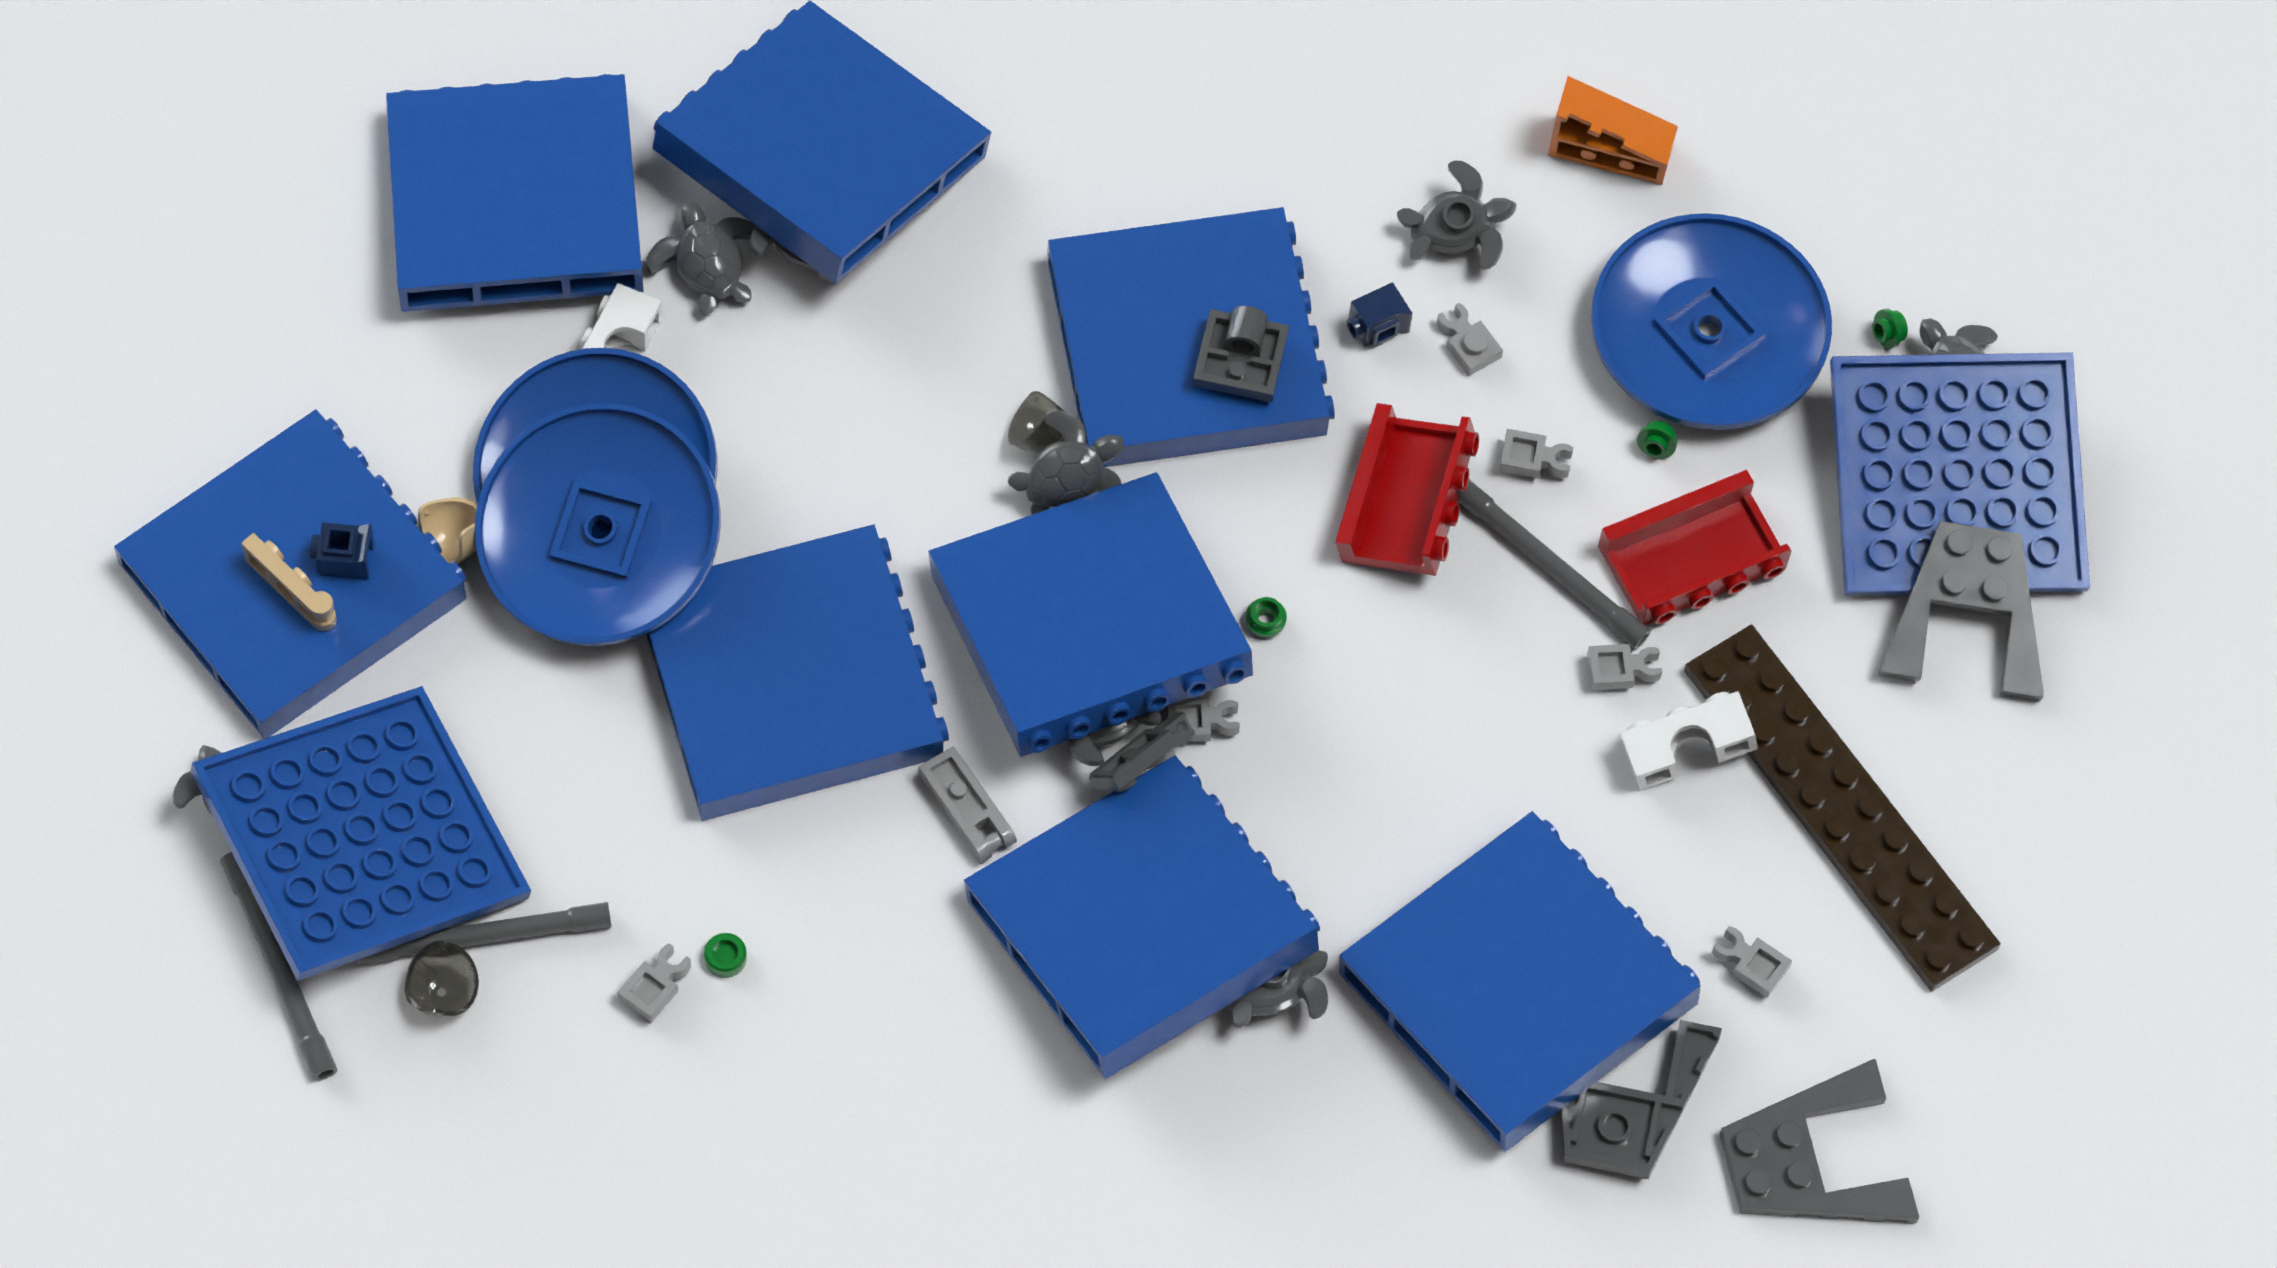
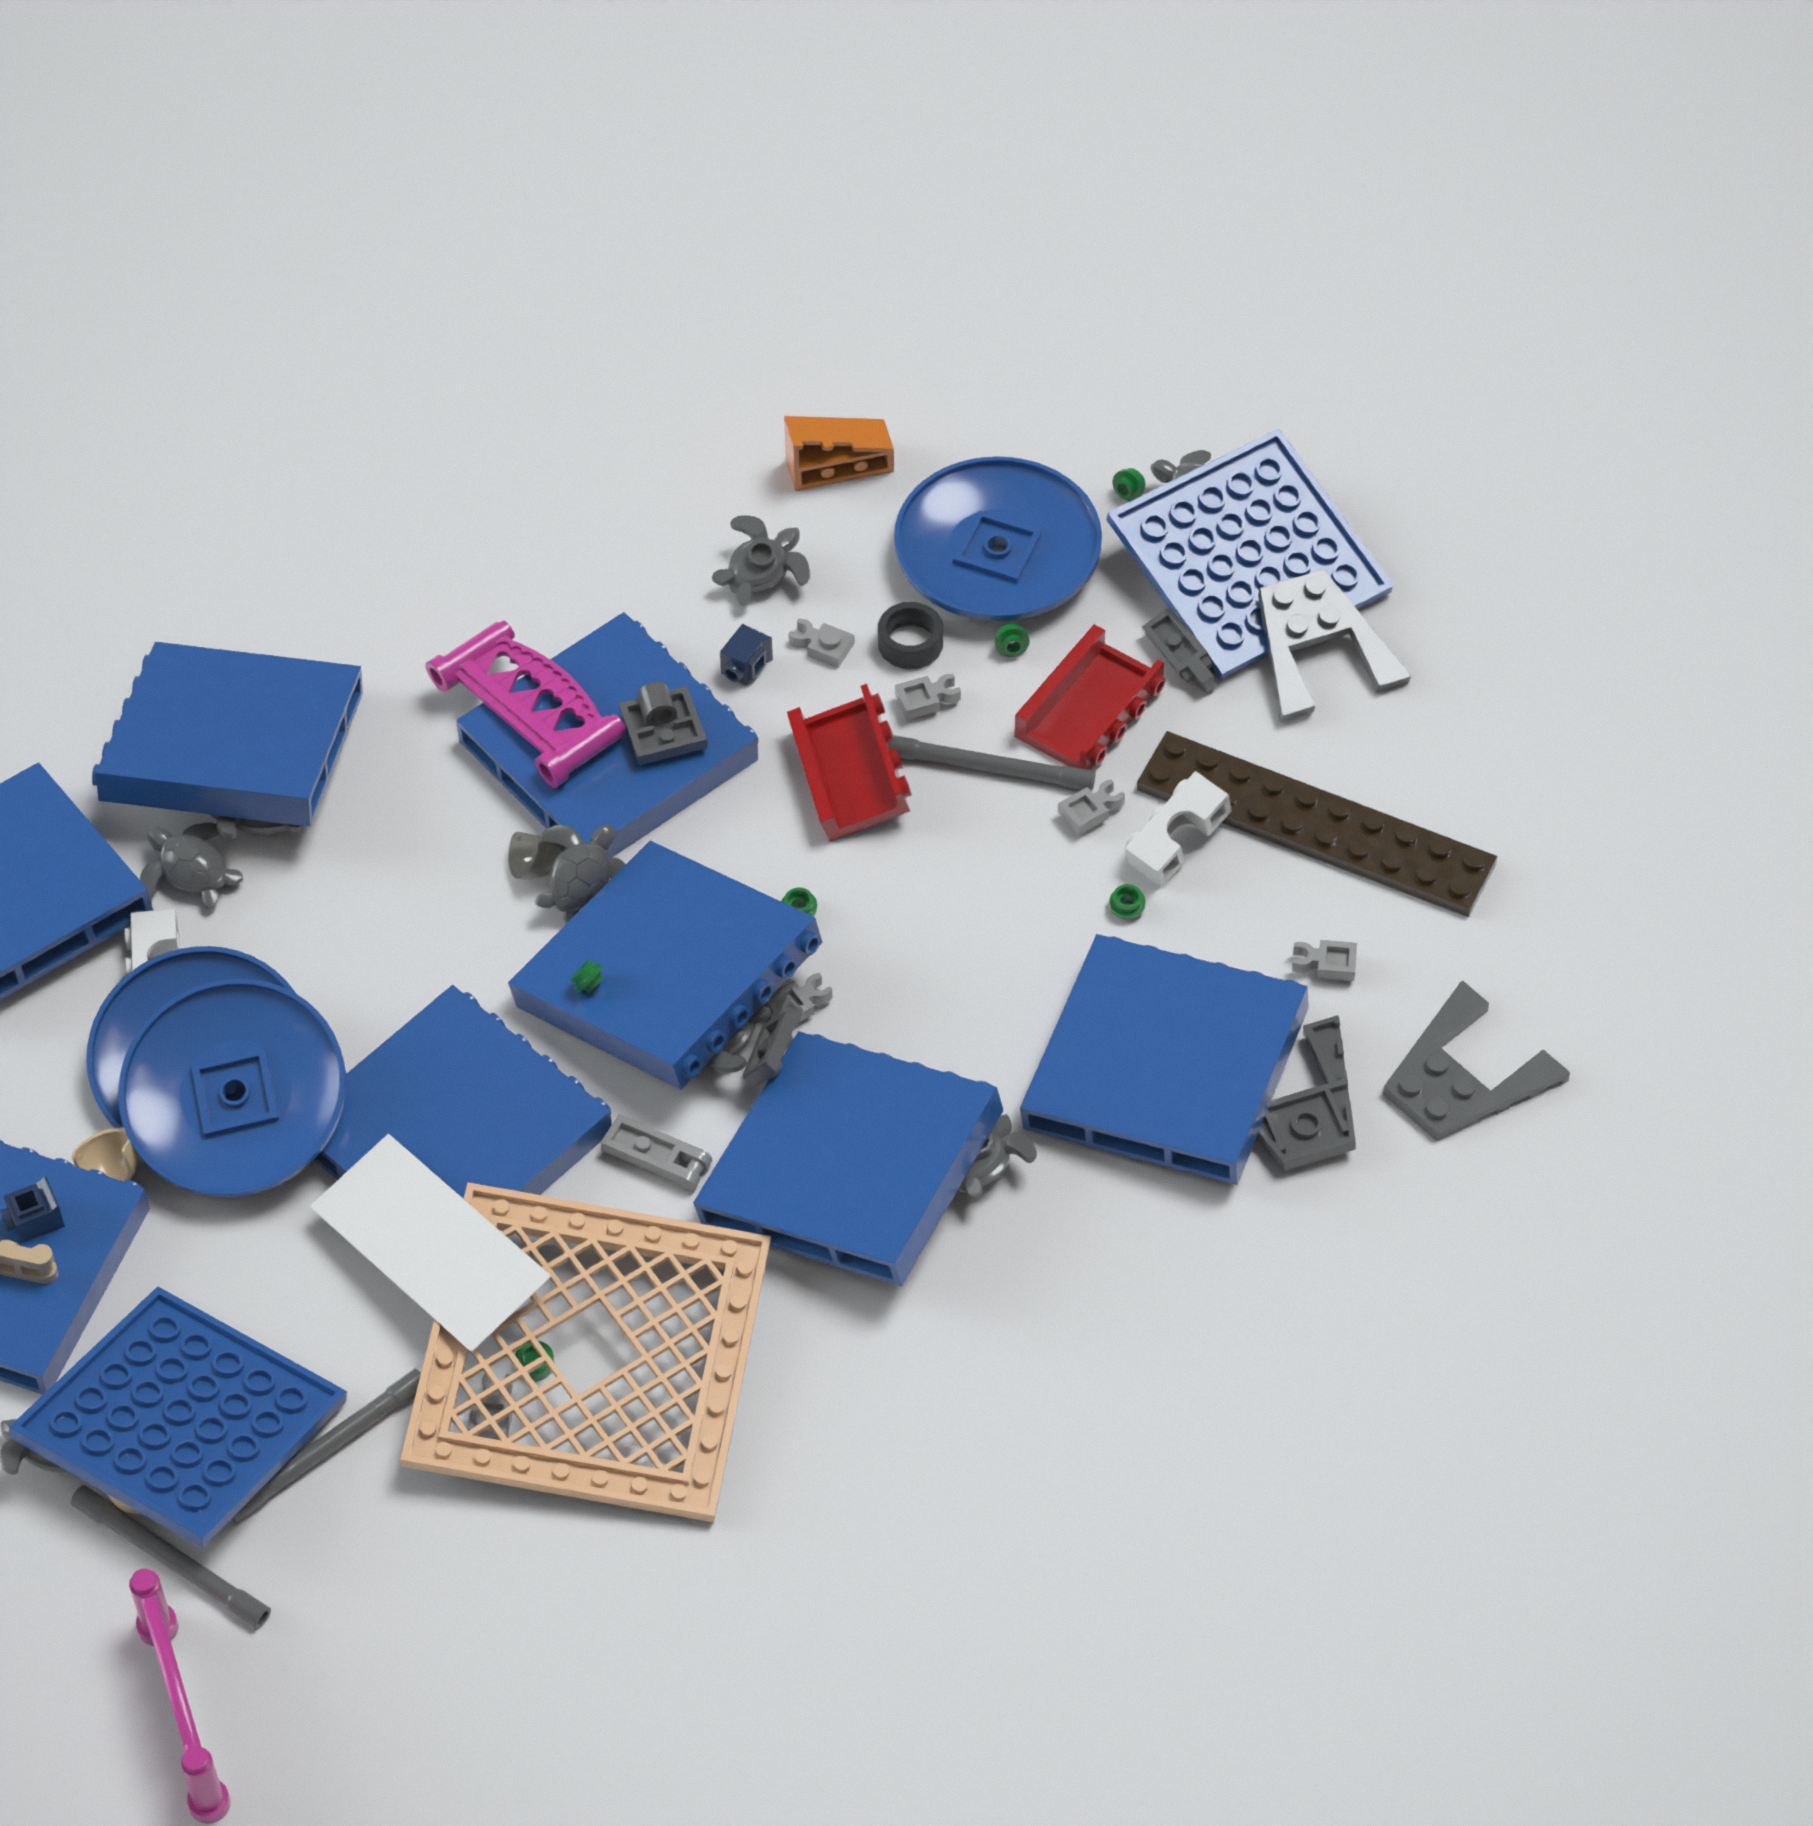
camera: 25 degrees left, 10 degrees down
(221, 1028) = (157, 1627): none -> dark pink piece
(441, 980) = (315, 1494): clear smoke helmet -> none
(688, 786) = (430, 1242): none -> white sticker
(765, 783) = (689, 1494): none -> light nougat plate
(997, 591) = (587, 976): none -> green plate
(1129, 329) = (560, 749): none -> dark pink piece
(1559, 353) = (910, 655): none -> black tyre
(1595, 779) = (1127, 894): none -> green plate
(1823, 541) = (1180, 649): none -> dark grey hinge

